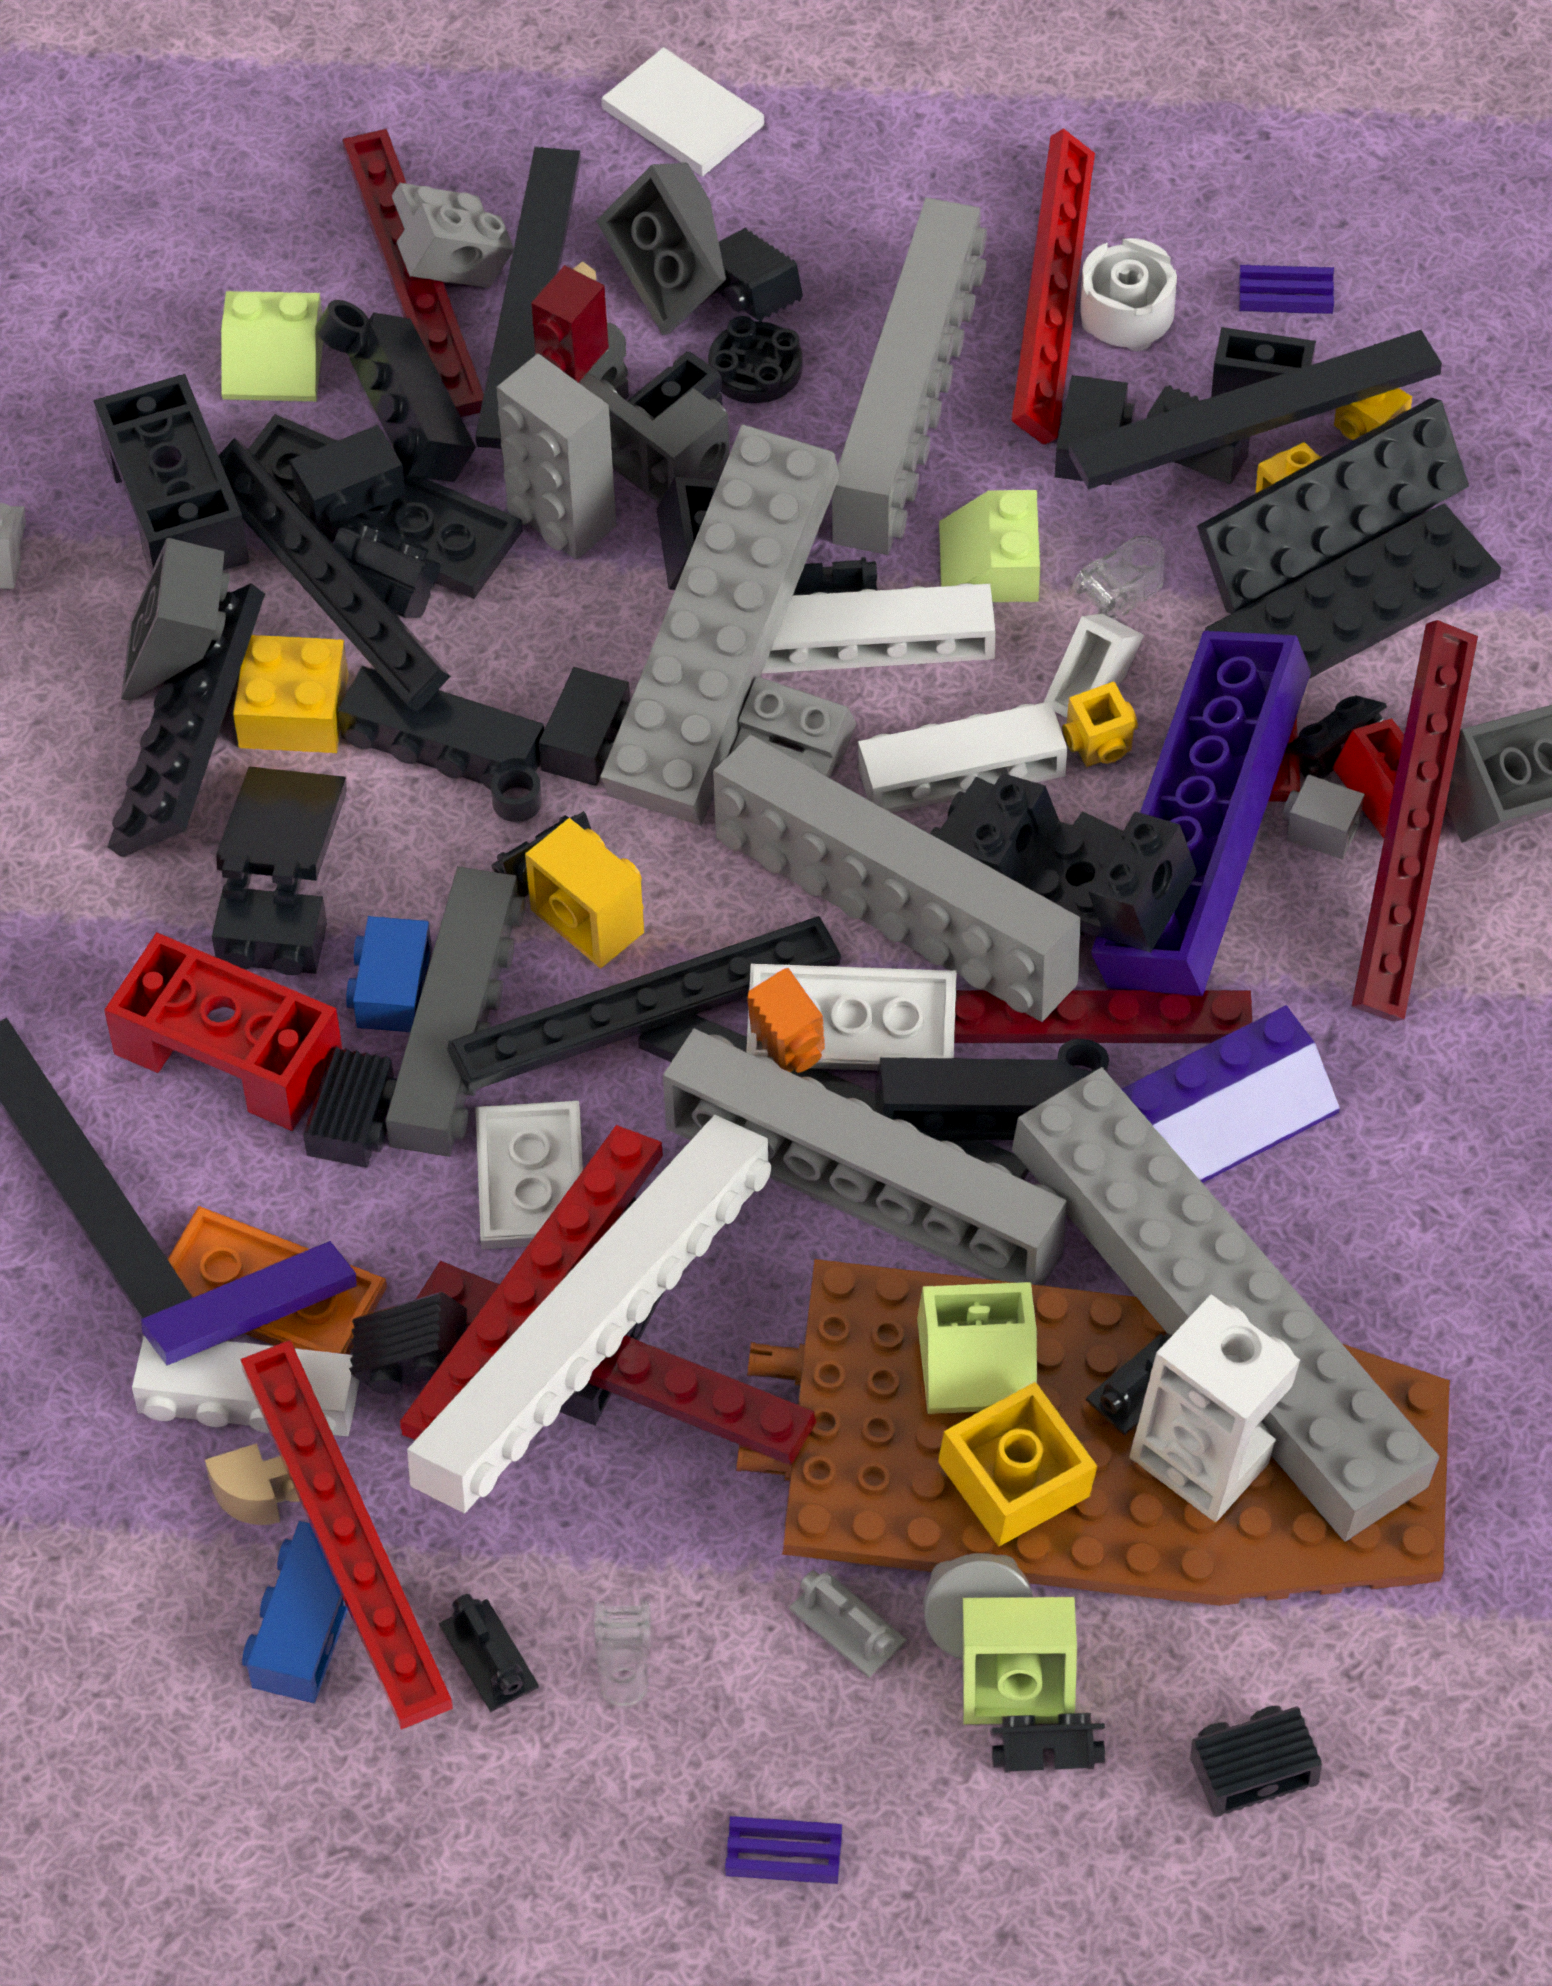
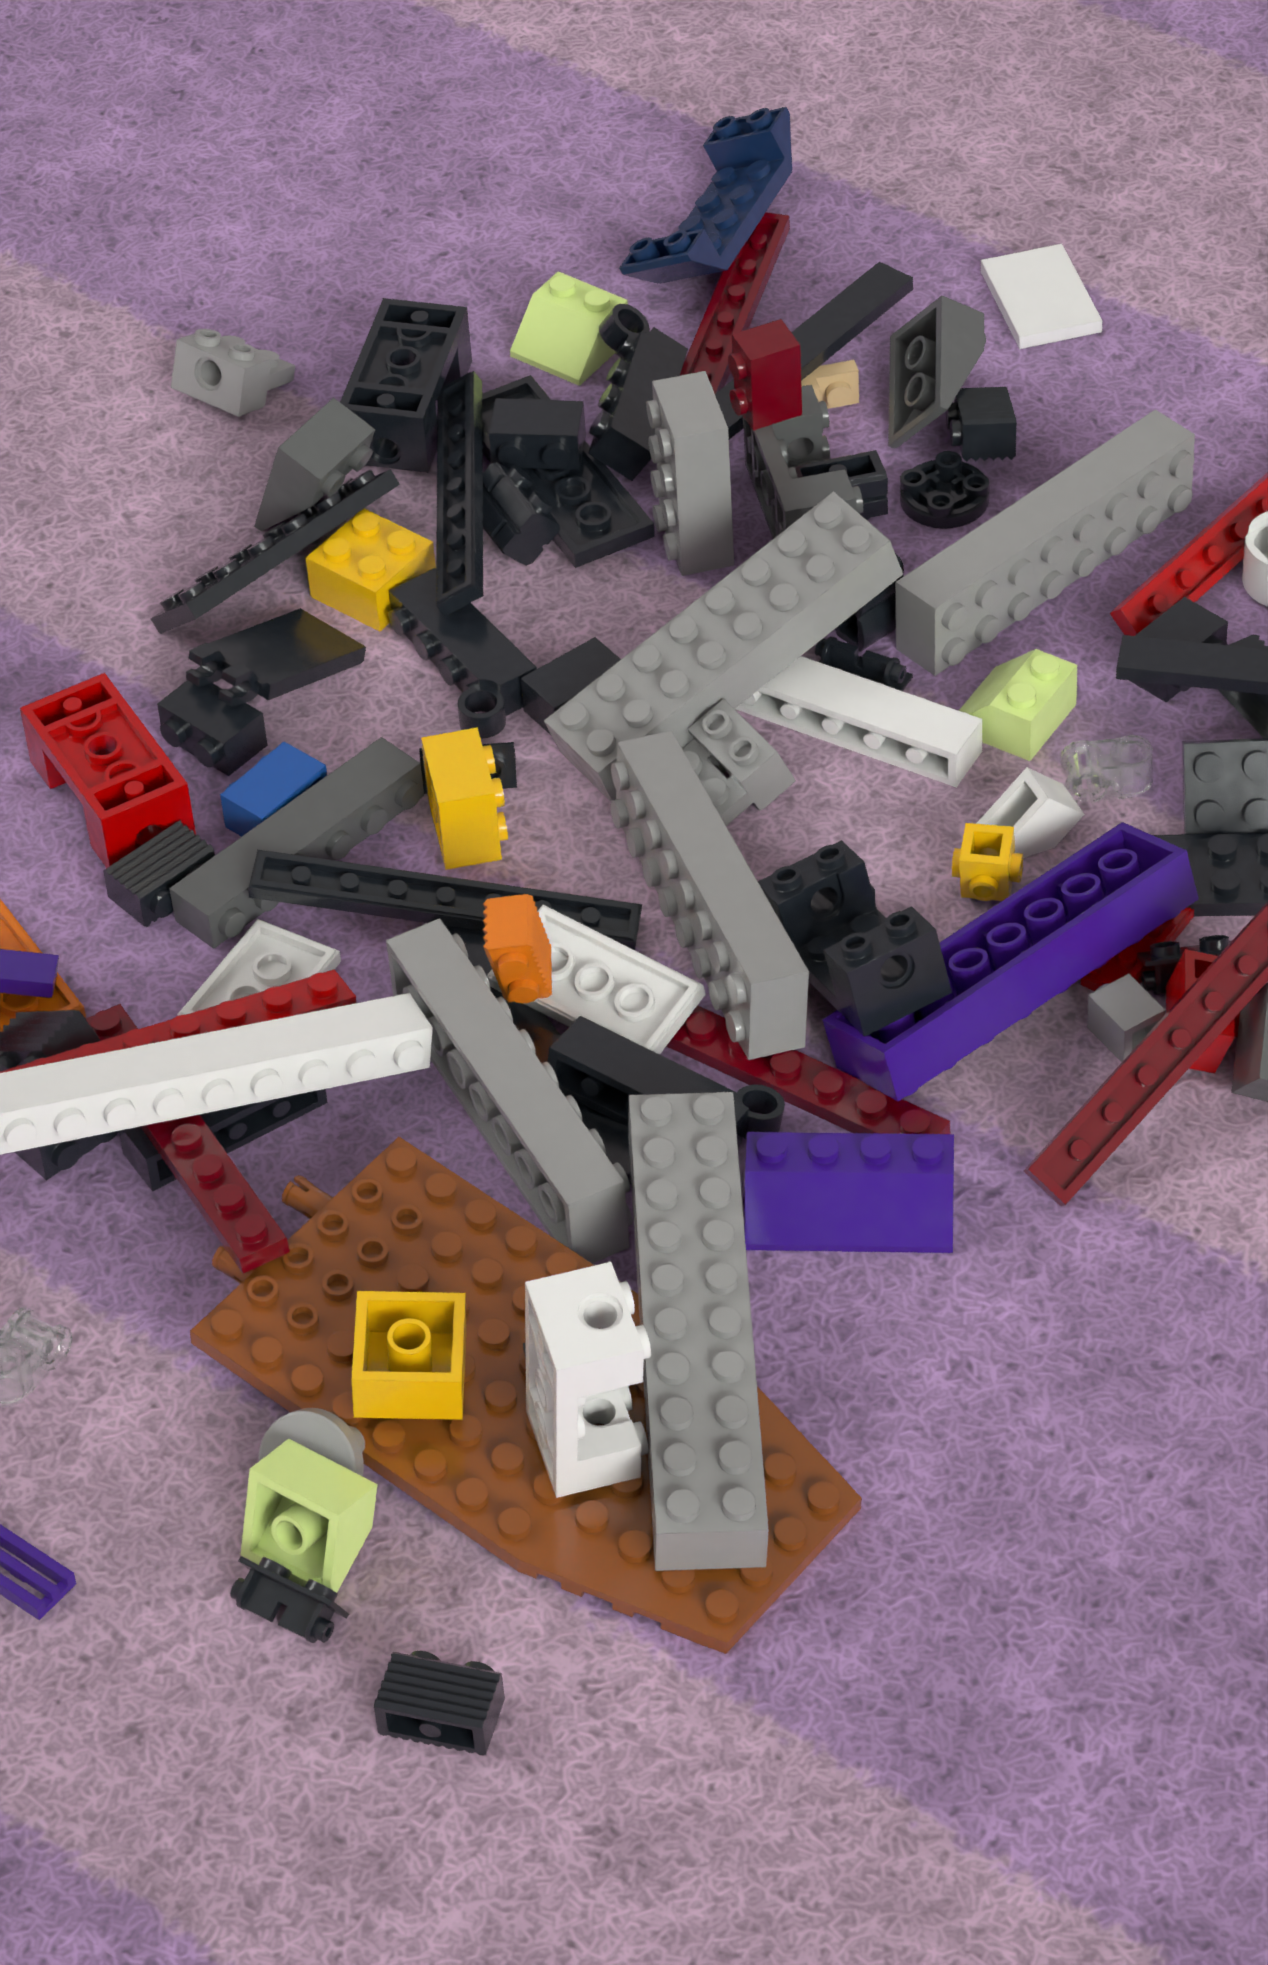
camera: 35 degrees right, 10 degrees down
(318, 138) = (751, 168): none -> dark blue slope
(450, 236) = (763, 292): light grey brick -> none
(846, 1622) = (210, 1426): light grey hinge -> none
(945, 758) = (895, 846): white brick -> none
(976, 1344) = (458, 1246): yellowish green slope -> none

